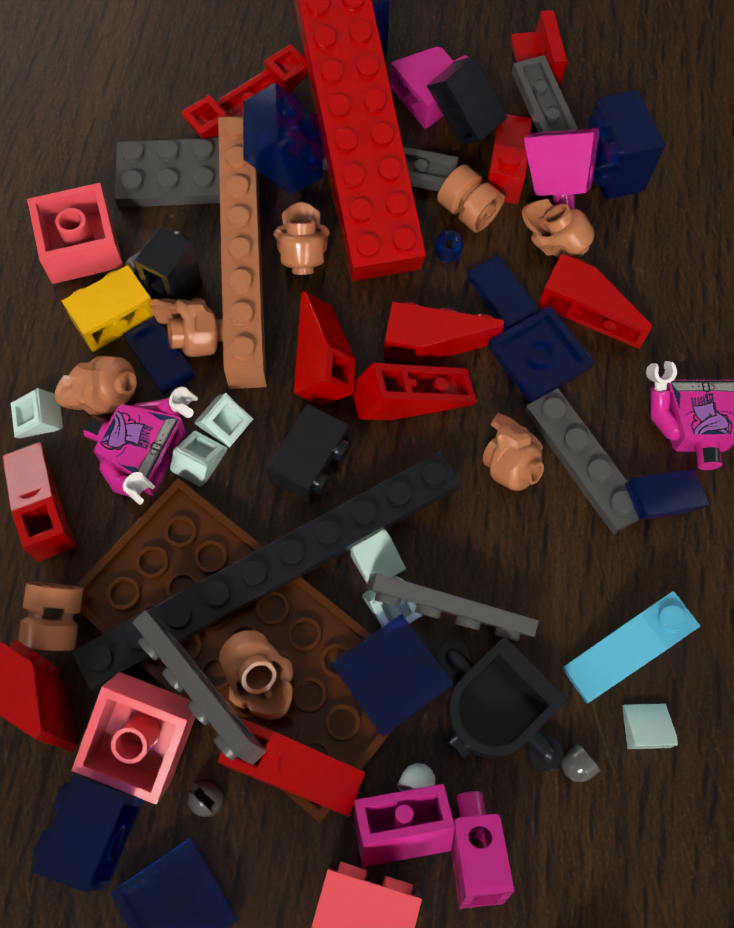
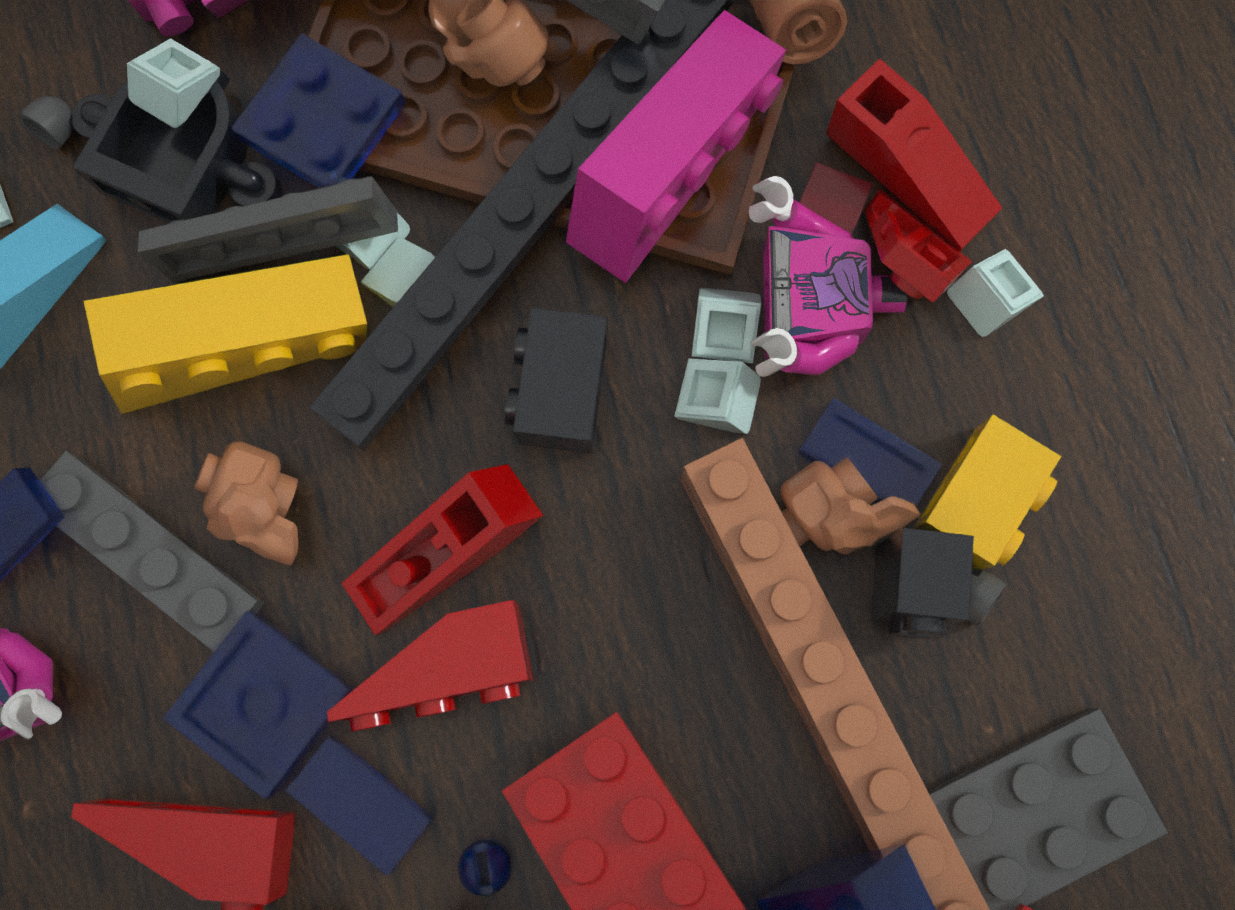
camera: 165 degrees right, 10 degrees up
(68, 440) = (914, 252): none -> red wing
(75, 233) = (1120, 597): coral brick -> none
(97, 385) = (923, 357): nougat head -> none
(97, 501) = (836, 196): none -> dark red tile
(171, 547) = (671, 143): none -> dark pink wedge
(301, 238) = (739, 756): nougat head -> none
(323, 354) = (609, 554): red slope -> none
(416, 777) = (250, 23): light aqua hinge -> none
(482, 731) = (170, 81): none -> light aqua slope
(495, 552) = (224, 329): none -> yellow wedge

